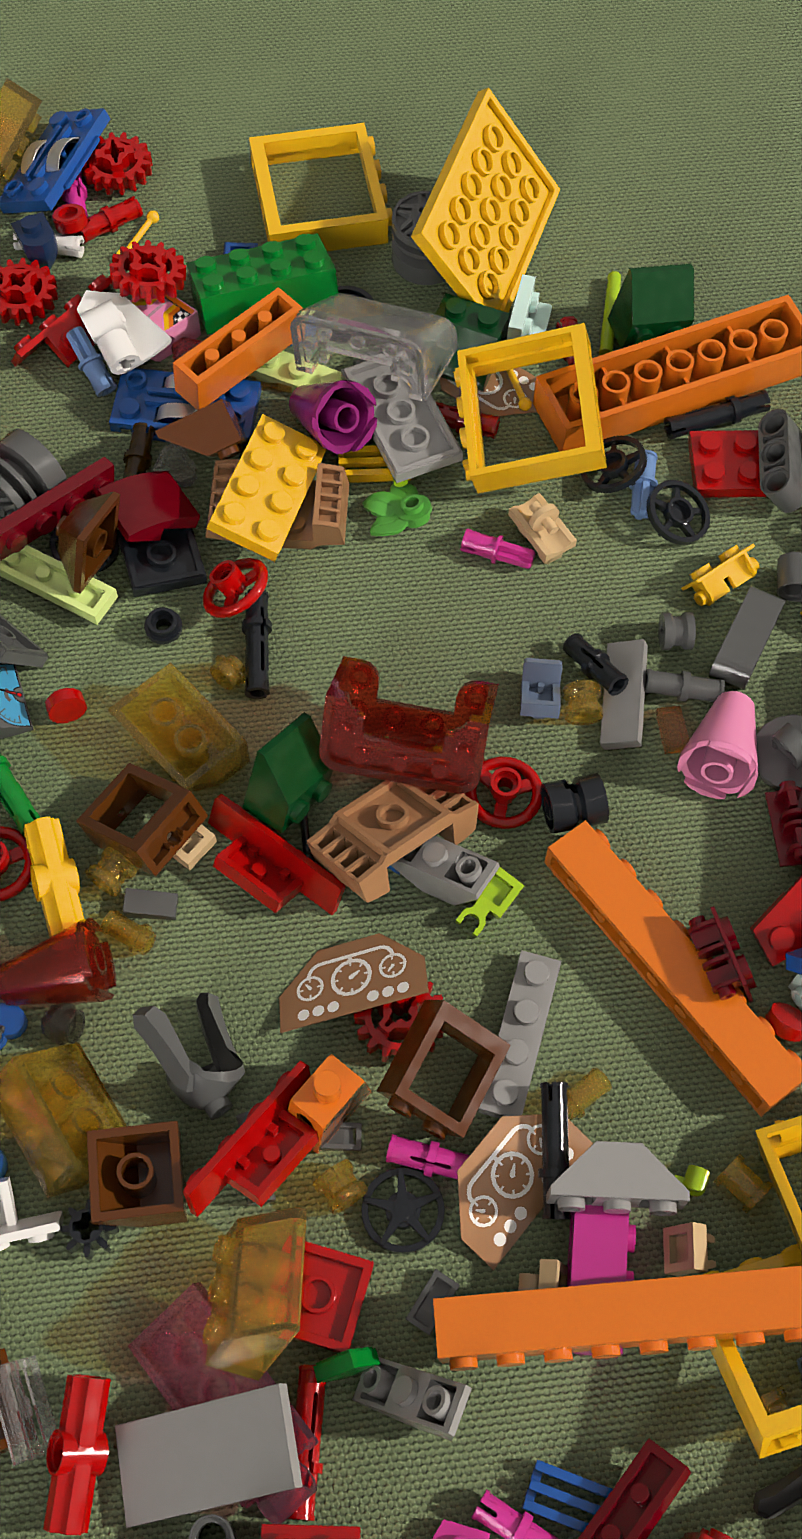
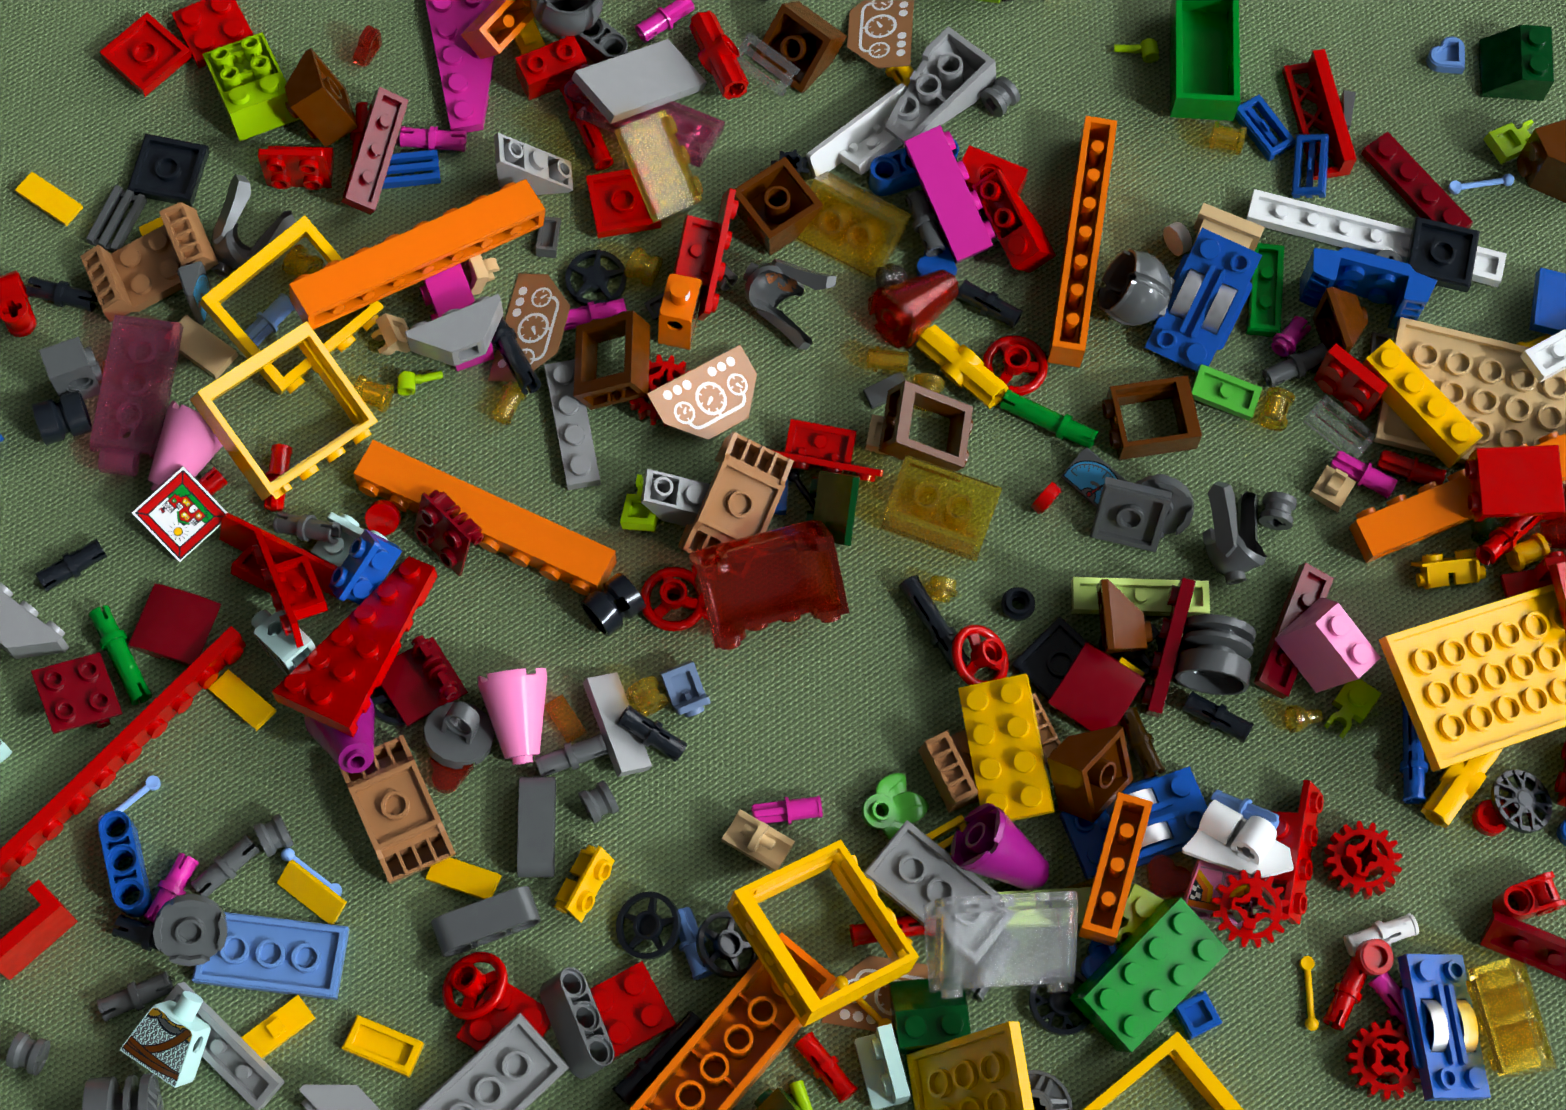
camera: 150 degrees right, 5 degrees up
(36, 239) = (1388, 916): dark blue plate -> none
(42, 432) = (1217, 716): none -> black pin
(346, 1364) = (582, 166): green tile -> none

